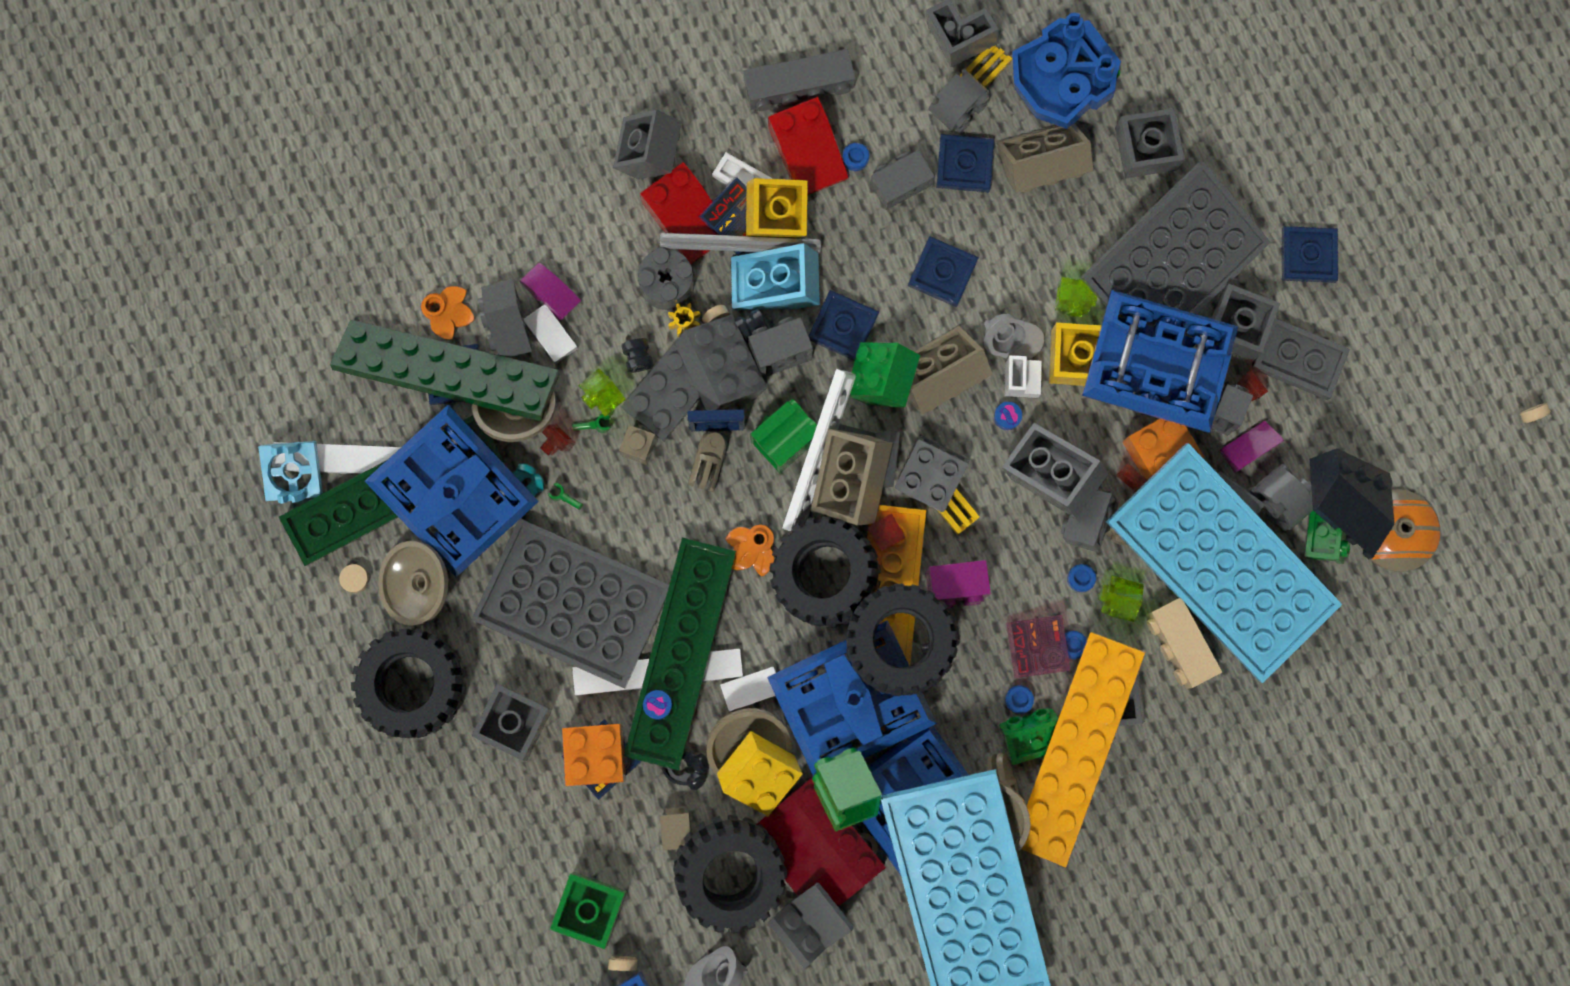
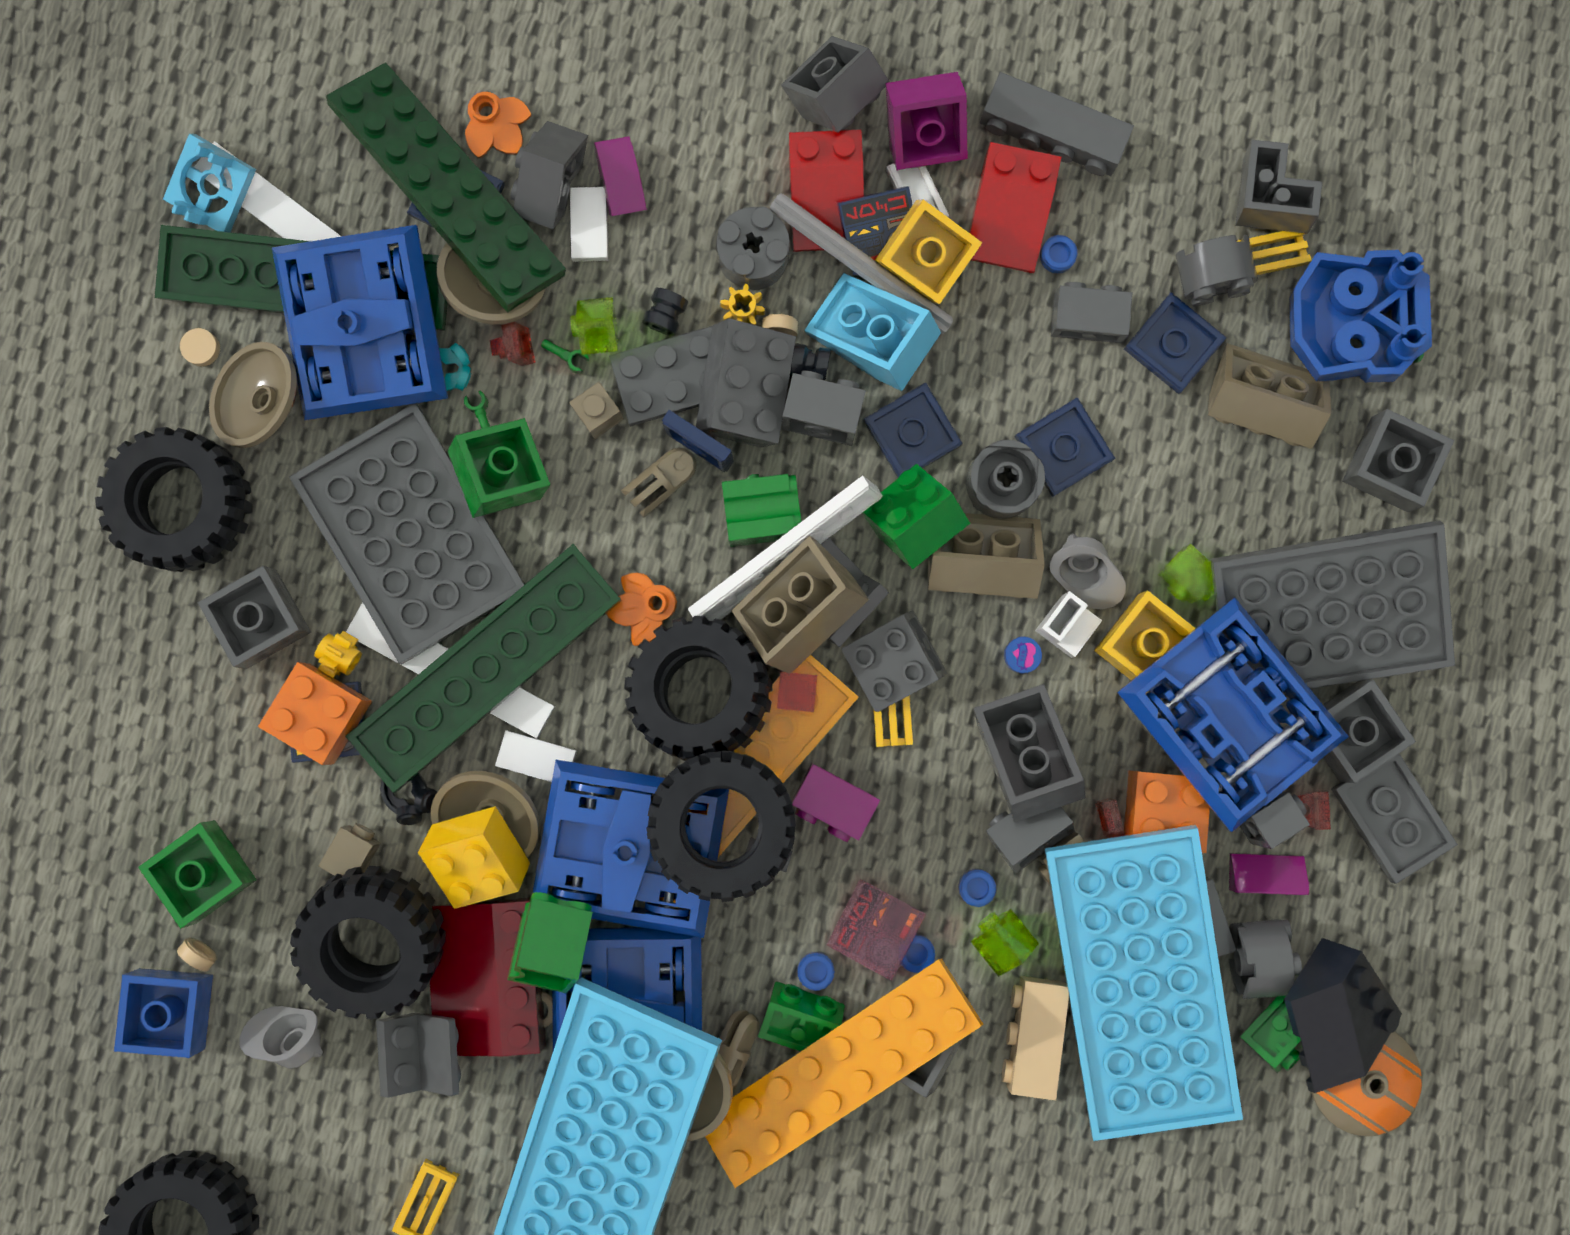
camera: 35 degrees right, 5 degrees up
(580, 709) = (338, 654): none -> yellow gear
(602, 521) = (498, 467): none -> green brick
(657, 704) = (418, 707): blue tile -> none
(720, 129) = (927, 120): none -> magenta brick
(925, 301) = (1020, 466): none -> dark grey brick
(1310, 254) = (1489, 707): dark blue tile -> none

